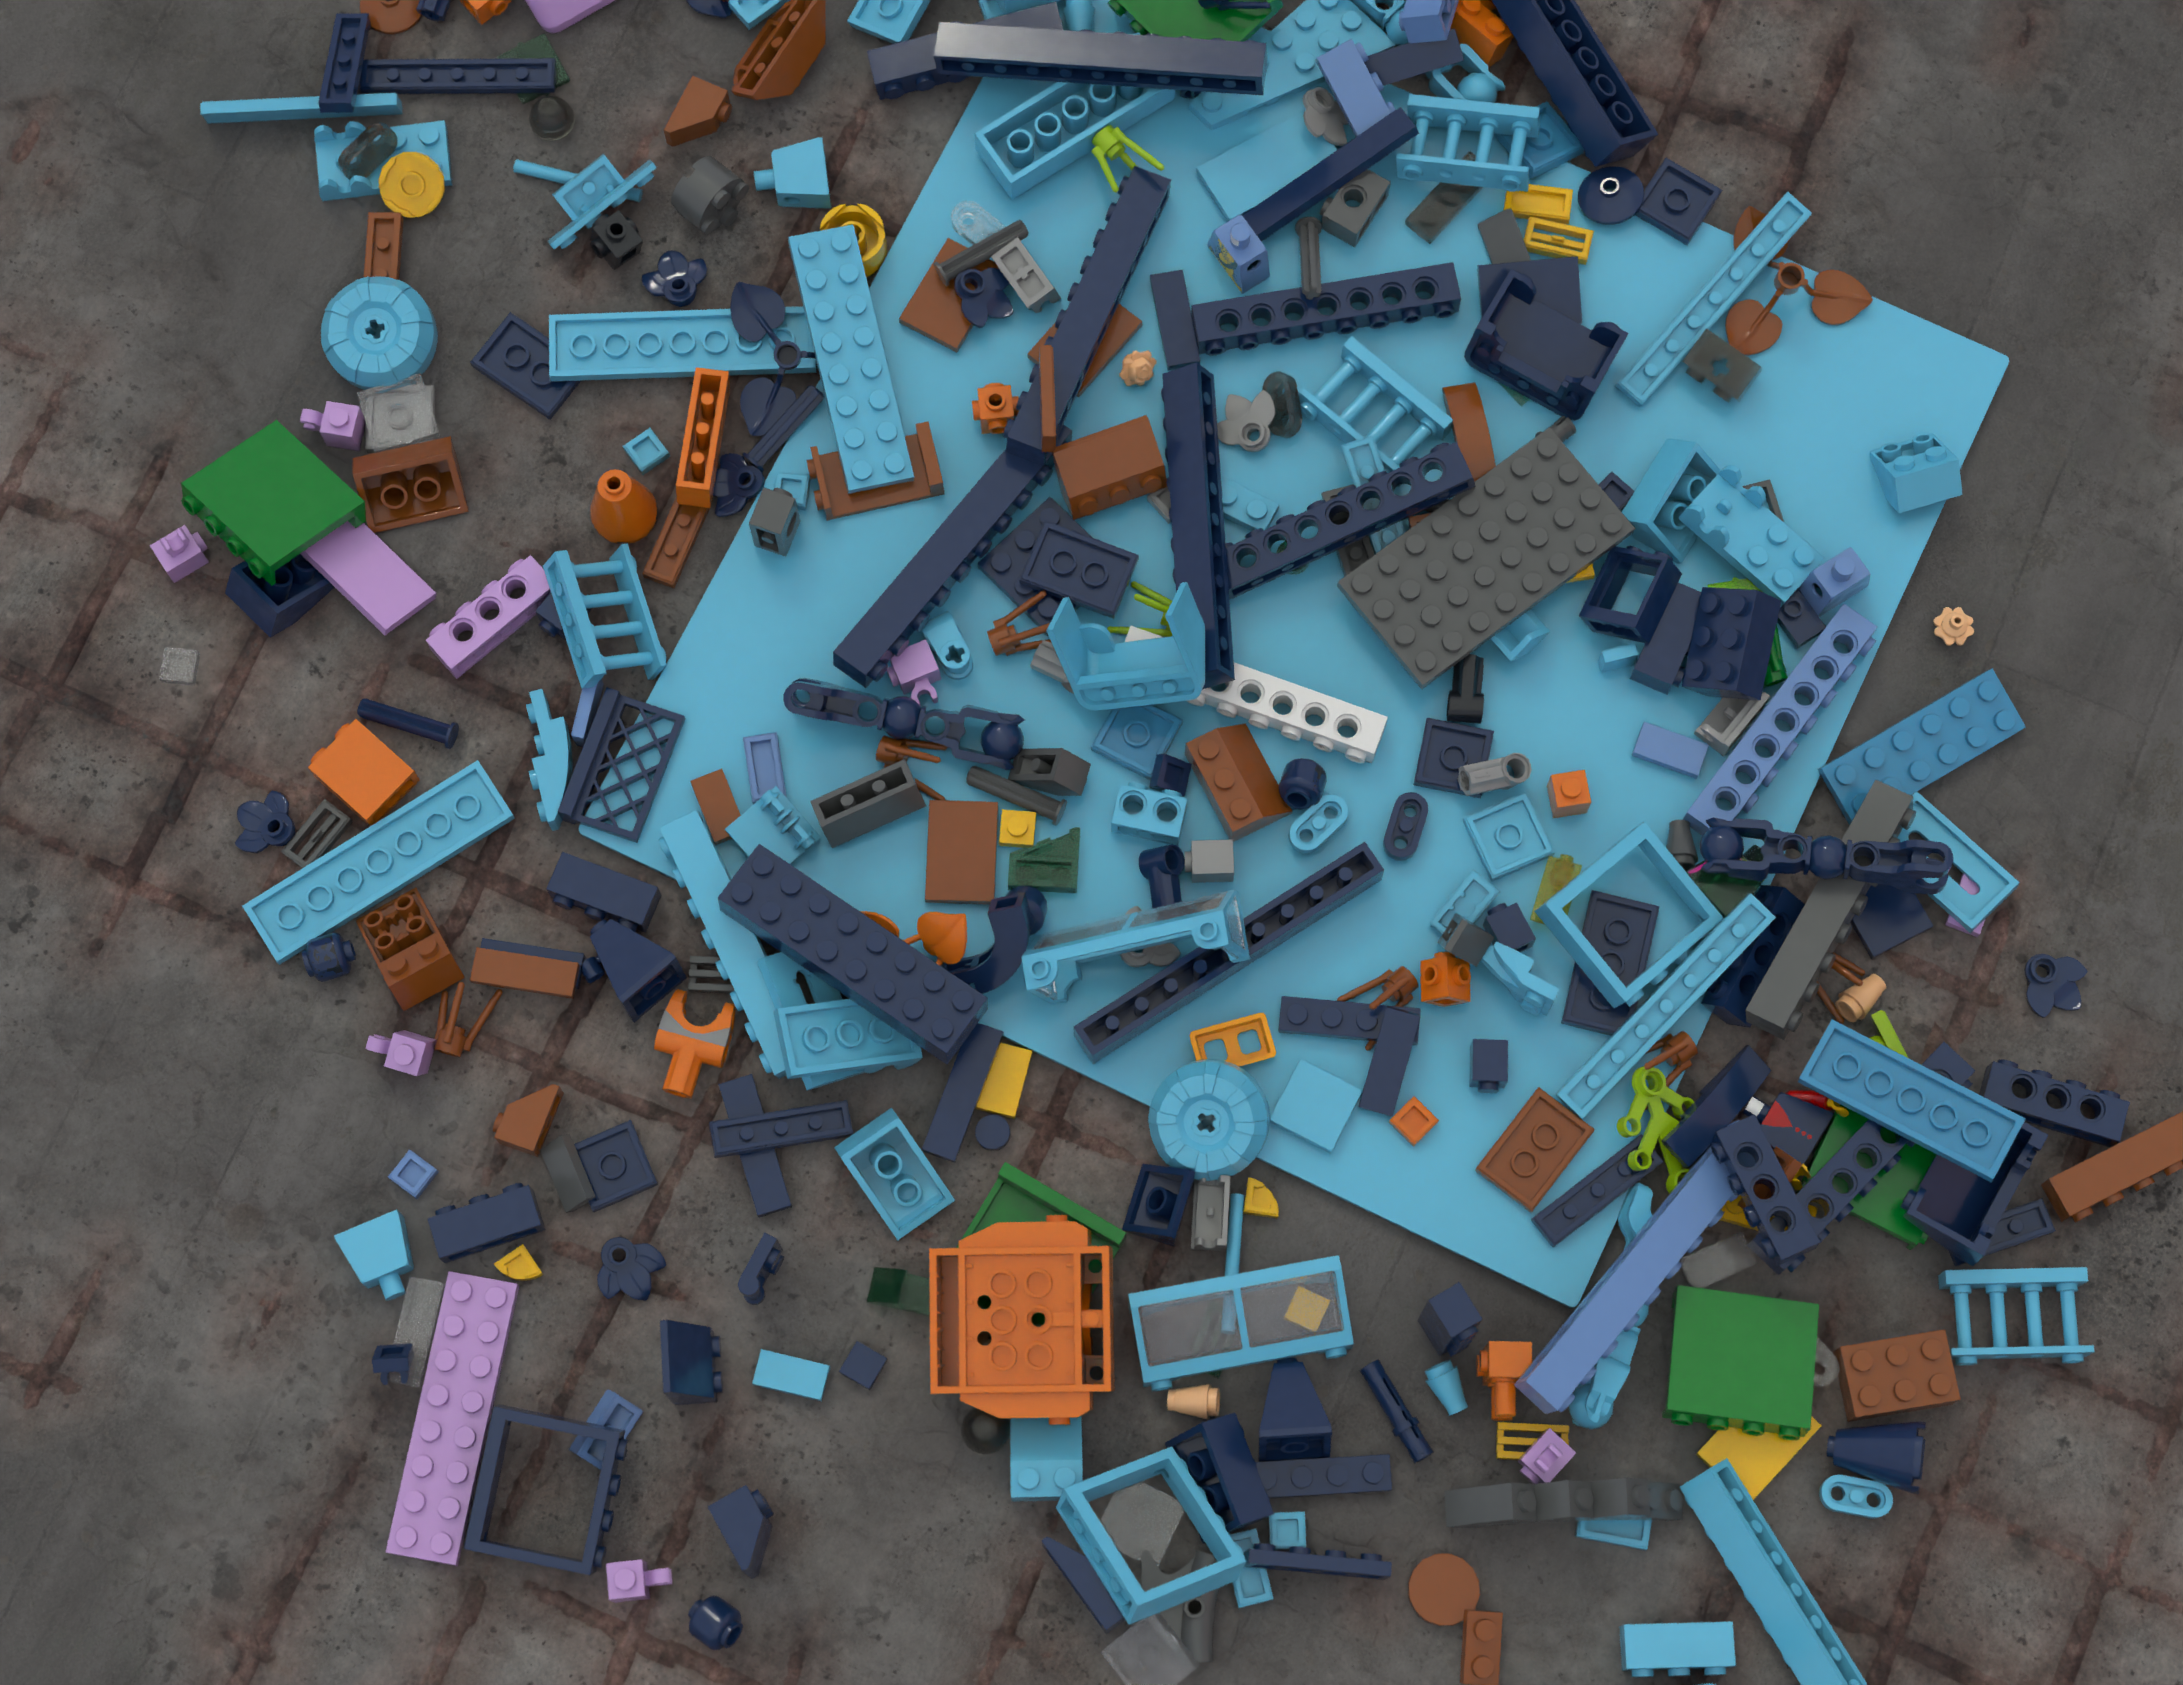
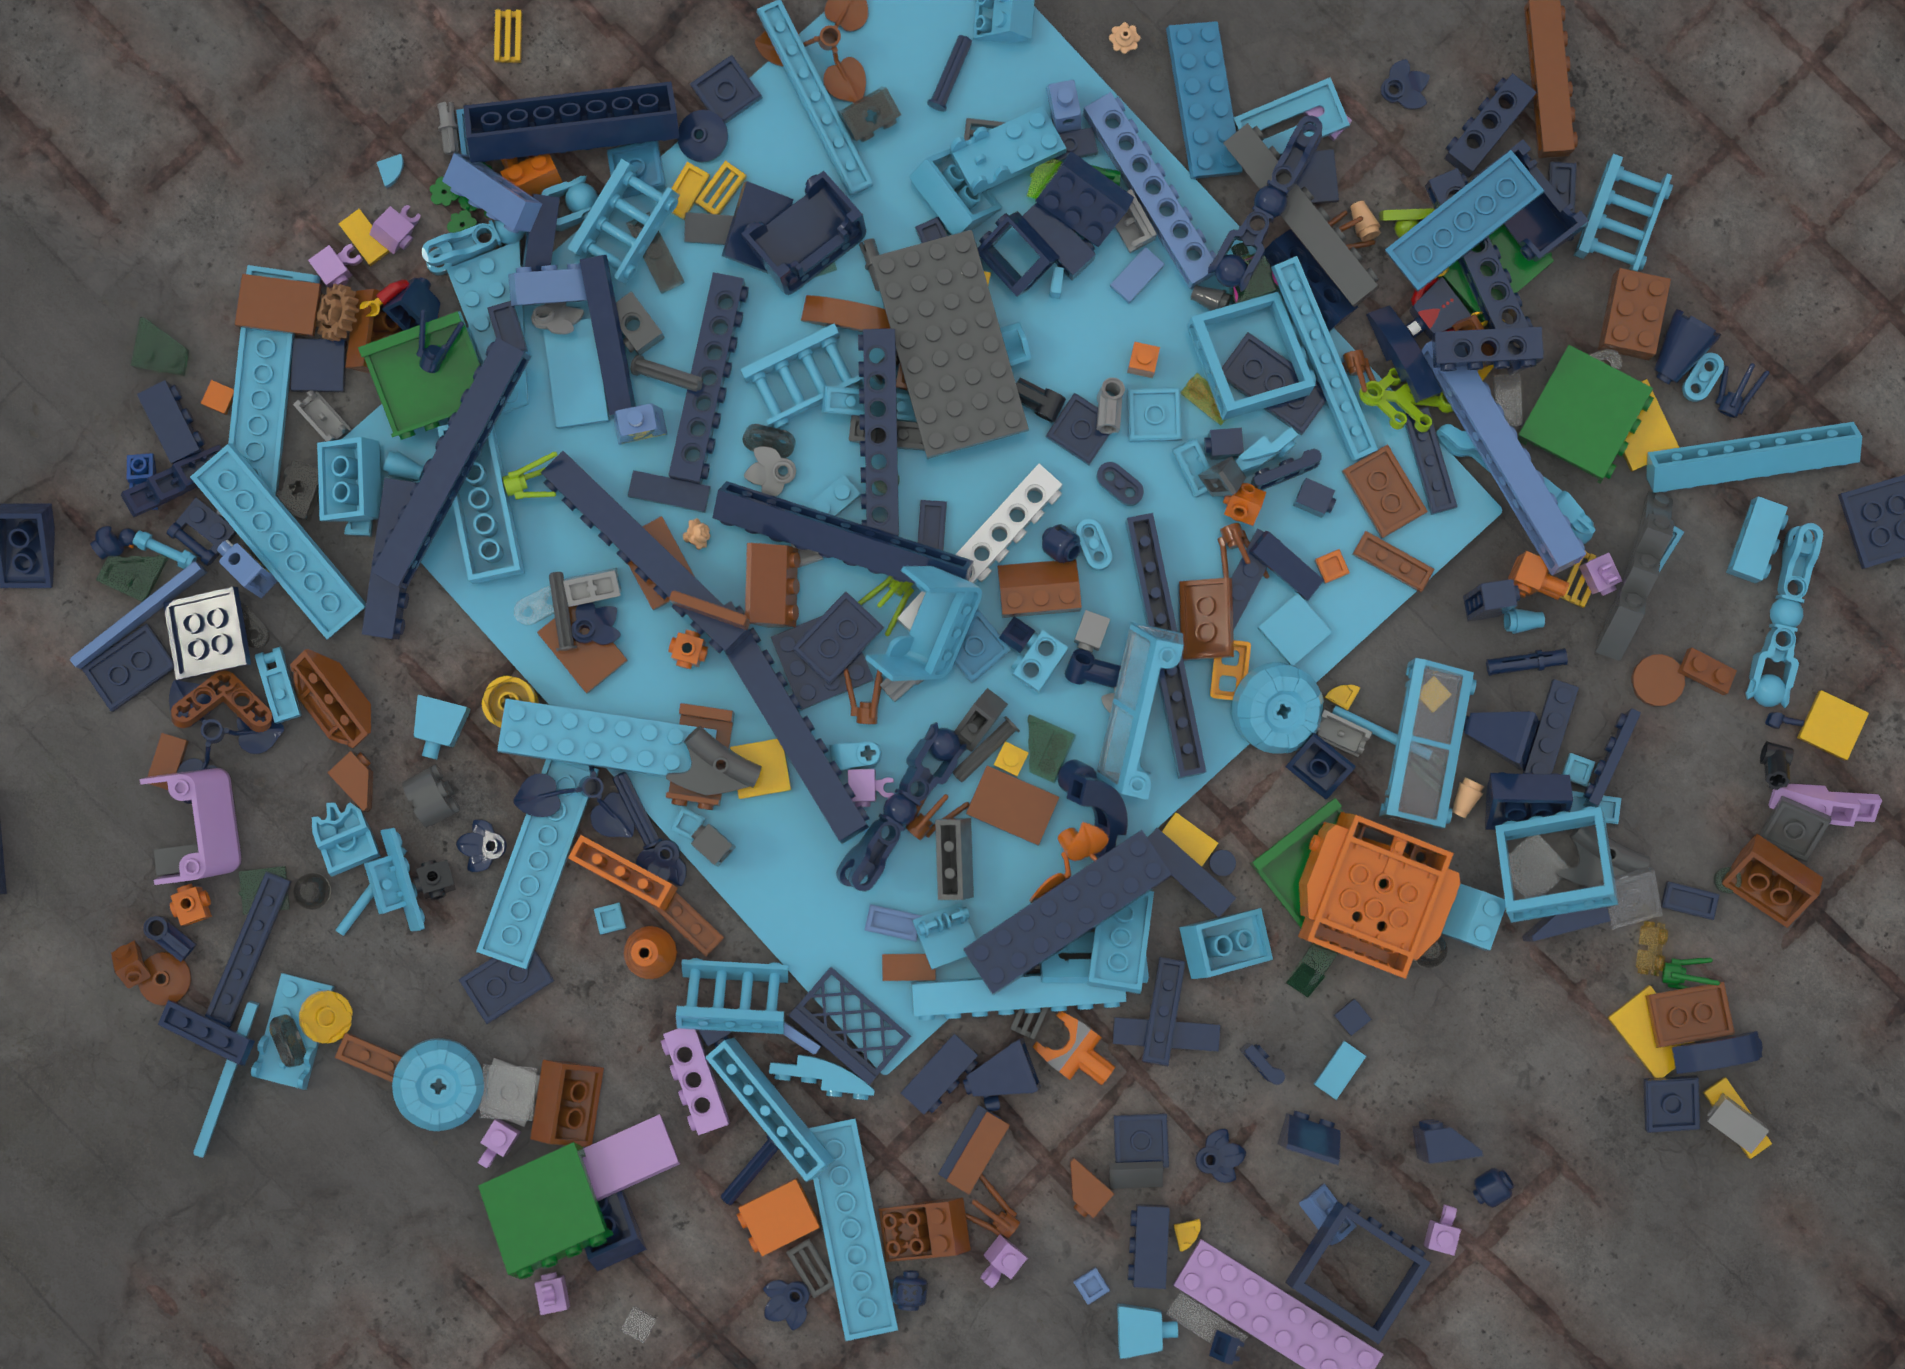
camera: 70 degrees left, 10 degrees up
(485, 708) = (770, 1109): none -> medium azure brick
(624, 126) = (344, 838): none -> medium azure plate
(856, 480) = (709, 777): none -> dark grey pin
(885, 544) = (774, 770): none -> yellow tile
(1262, 630) = (932, 523): none -> dark blue tile
(1283, 990) = (1206, 618): none -> dark orange tile
(1289, 67) = (507, 325): none -> dark blue tile
(1451, 1194) = (1393, 561): none -> dark orange tile
(1508, 1018) = (1287, 470): none -> dark blue hinge
(1815, 440) = (950, 73): none -> dark blue axle
(1838, 1546) = (1731, 404): none -> dark blue plant

